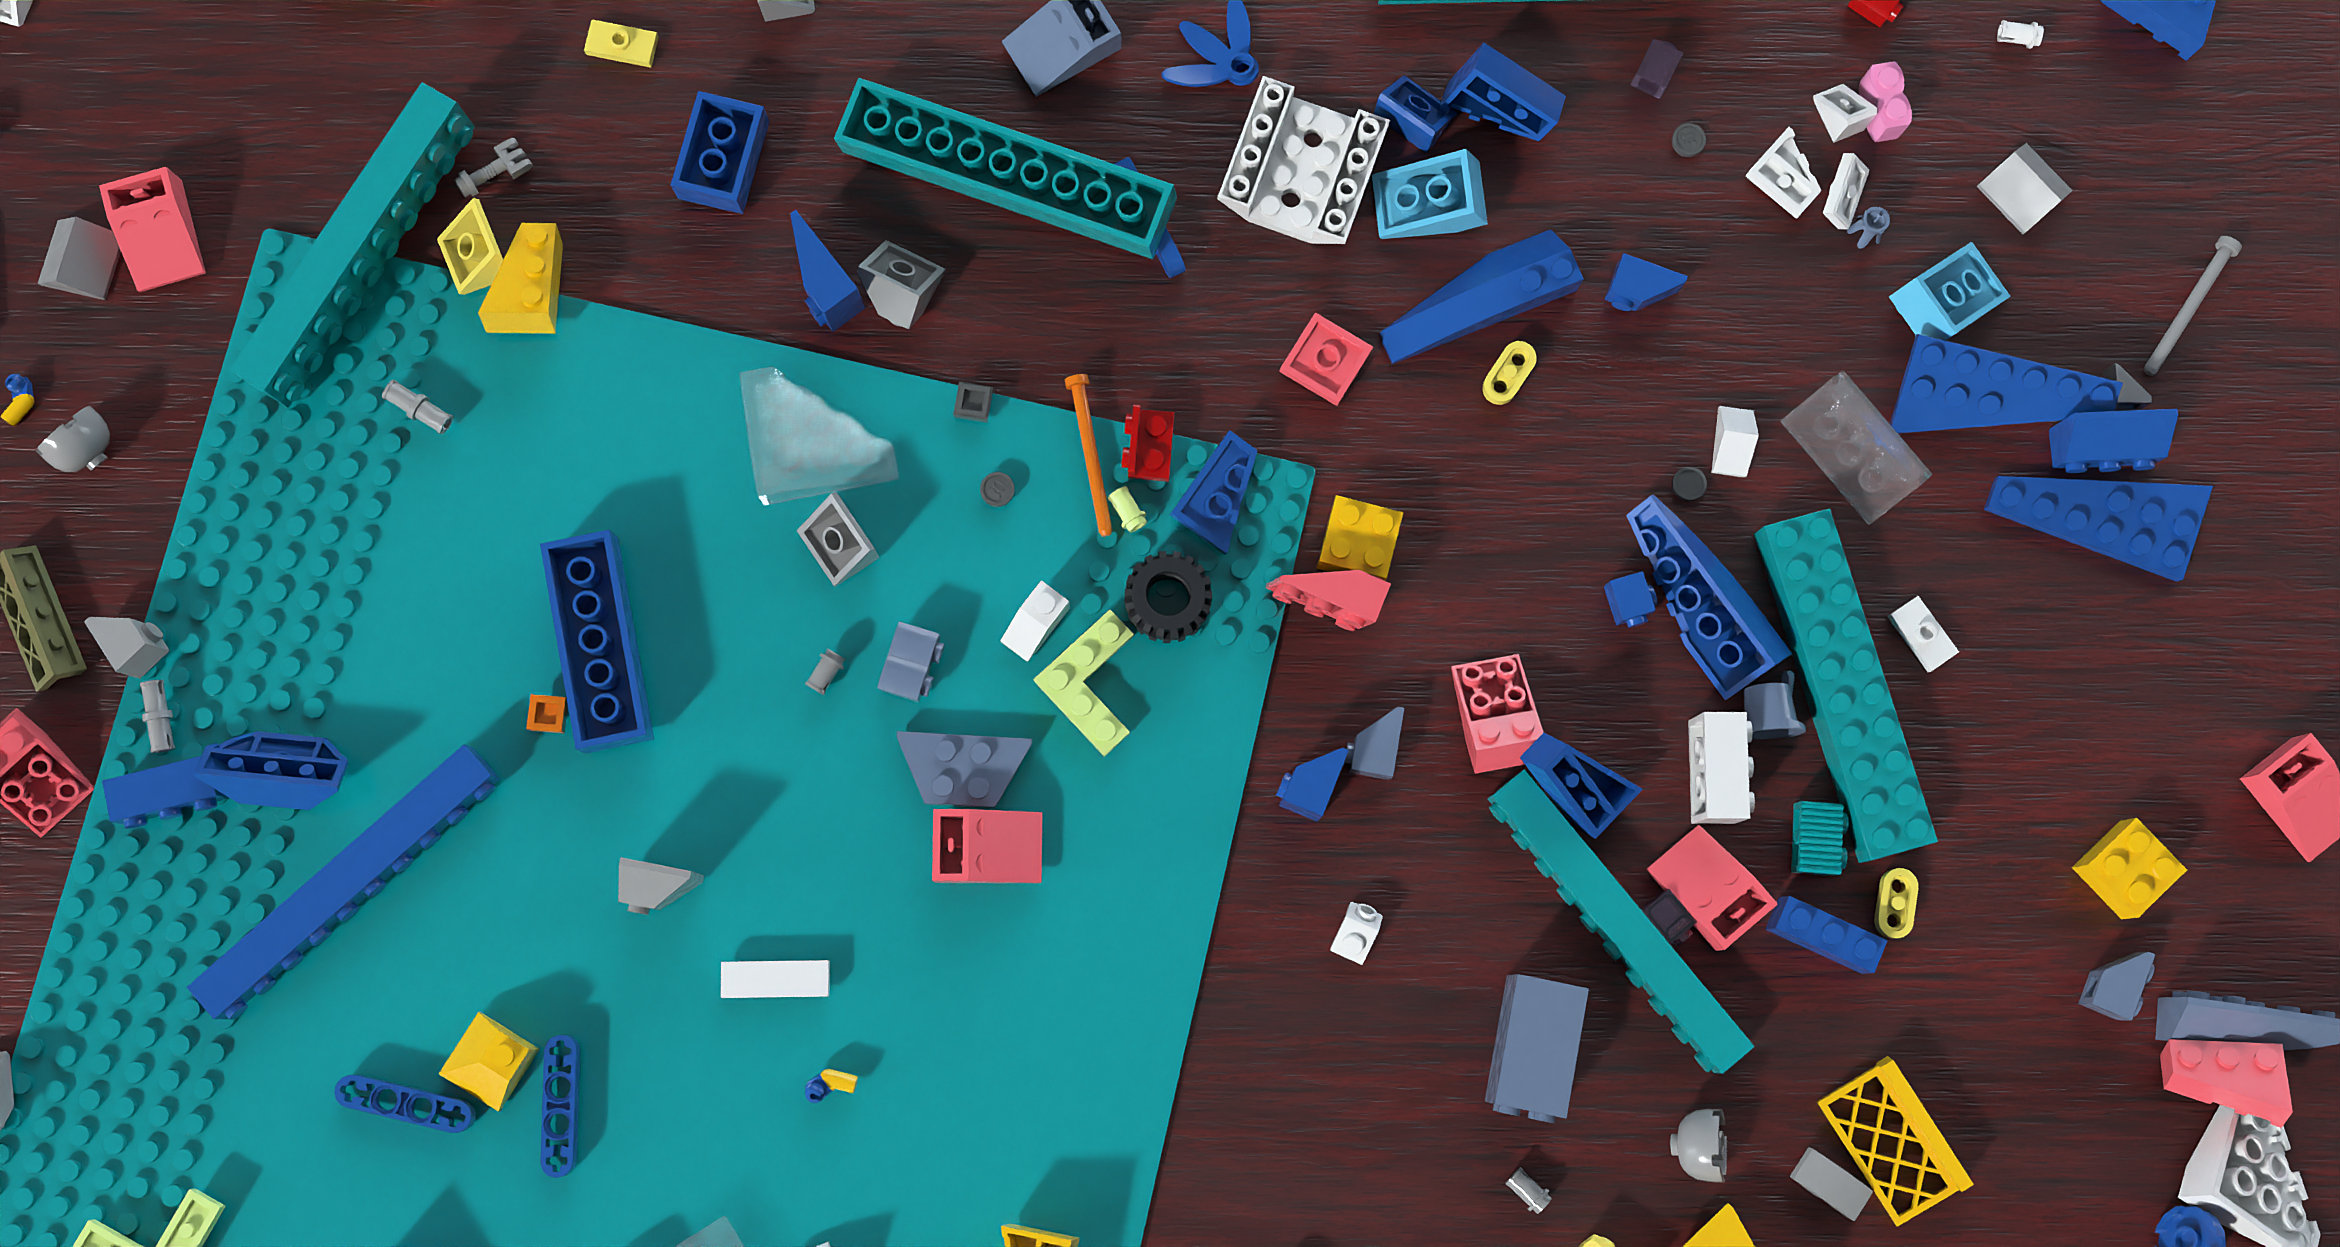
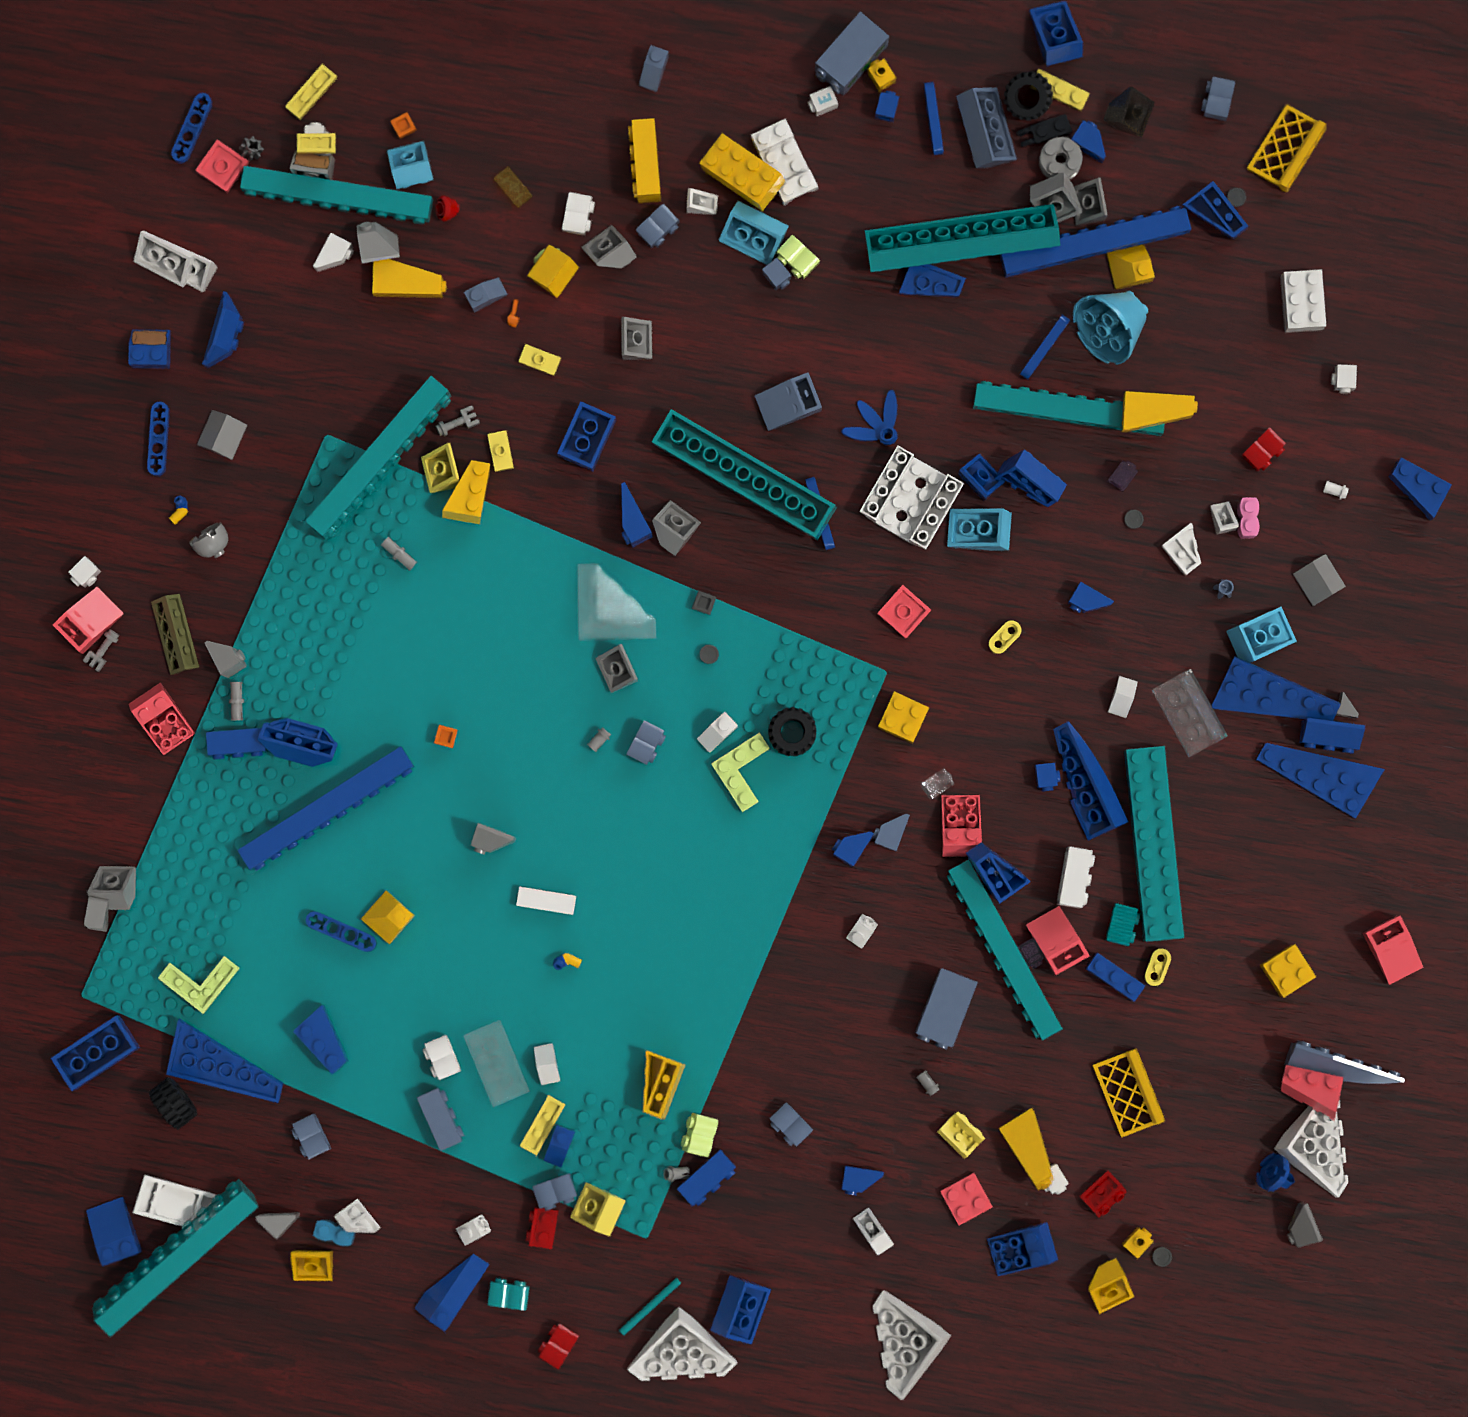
camera: 15 degrees right, 5 degrees up
(56, 85) = (224, 332): none -> blue wedge
(153, 228) = (266, 427): coral slope -> none
(553, 1105) = (425, 947): blue beam -> none
(575, 206) = (500, 451): none -> light yellow plate
(596, 642) = (479, 702): blue brick -> none
(962, 767) = (664, 804): sand blue wing -> none
(986, 846) = (671, 850): coral slope -> none
(1077, 384) = (764, 642): orange bar -> none
(1127, 509) = (778, 678): yellowish green pin -> none
(1149, 444) = (797, 643): red bracket -> none
(1216, 493) = (829, 677): blue wing -> none
(1344, 595) = (890, 748): coral slope -> none
(1442, 645) = (937, 783): none -> clear bracket
(1485, 294) = (1003, 588): blue wedge -> none
(1689, 484) = (1093, 716): dark grey piece -> none
(1702, 1145) = (1024, 1076): light grey cylinder -> none
(1772, 709) = (1110, 850): sand blue hat -> none
(1831, 1183) = (1090, 1108): light grey slope -> none
(1846, 191) = (1215, 565): white plate -> none
(1923, 634) = (1205, 823): white plate -> none
(2118, 986) = (1266, 1032): sand blue slope -> none
(2226, 247) = (1425, 635): light grey bar -> none

